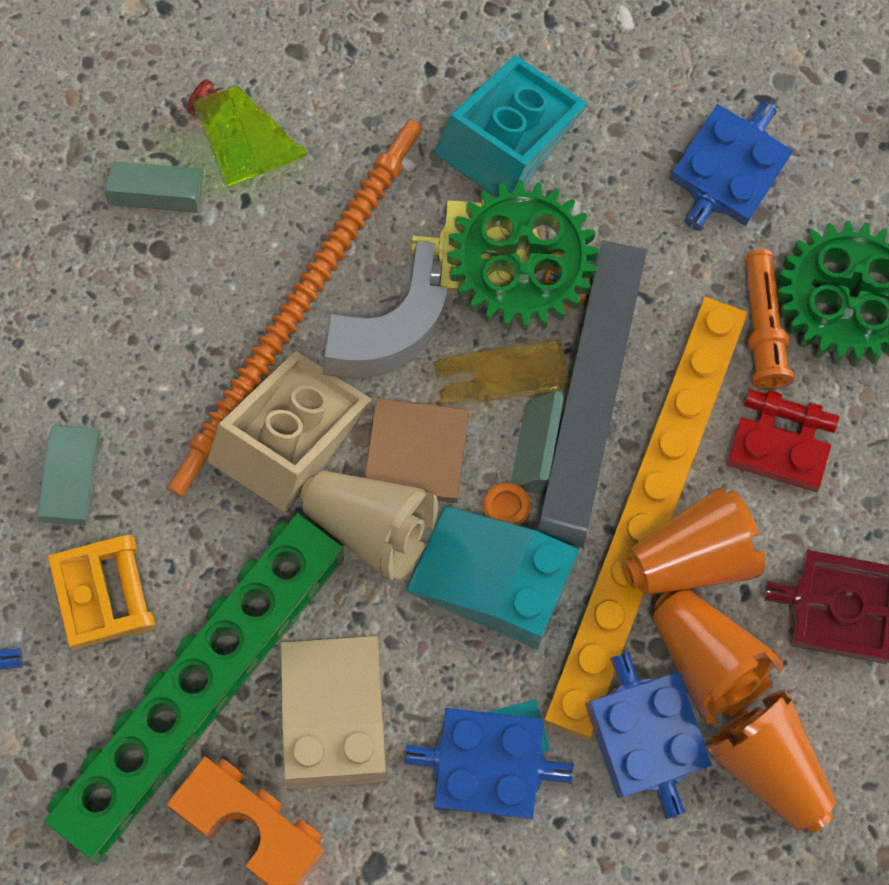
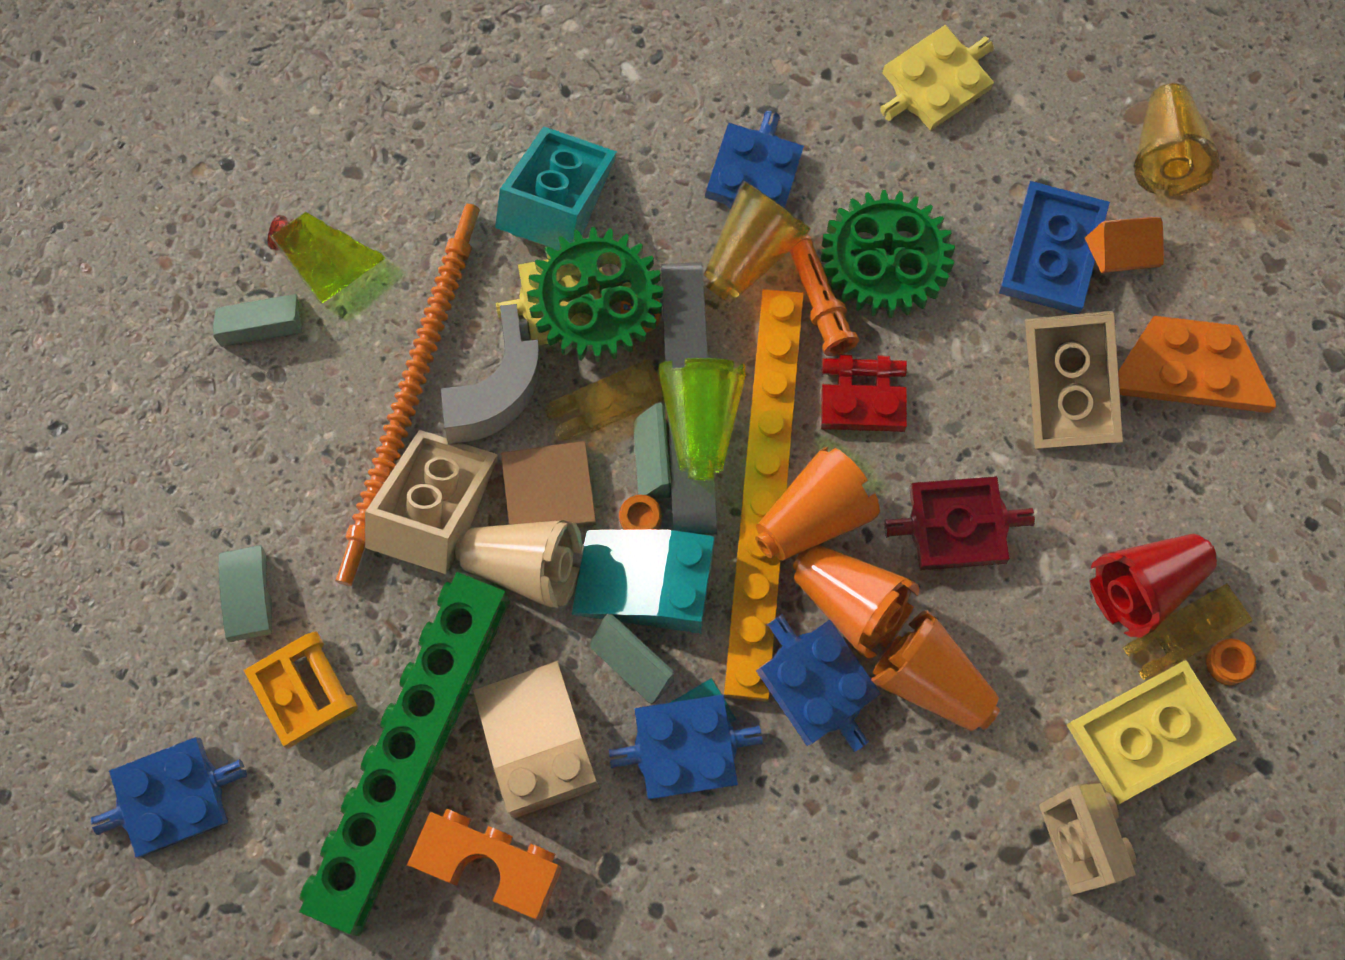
camera: 10 degrees left, 0 degrees up
(456, 656) = (631, 659): none -> sand green slope
(602, 413) = (701, 411): none -> clear neon green cone
(705, 243) = (751, 242): none -> clear yellow cone

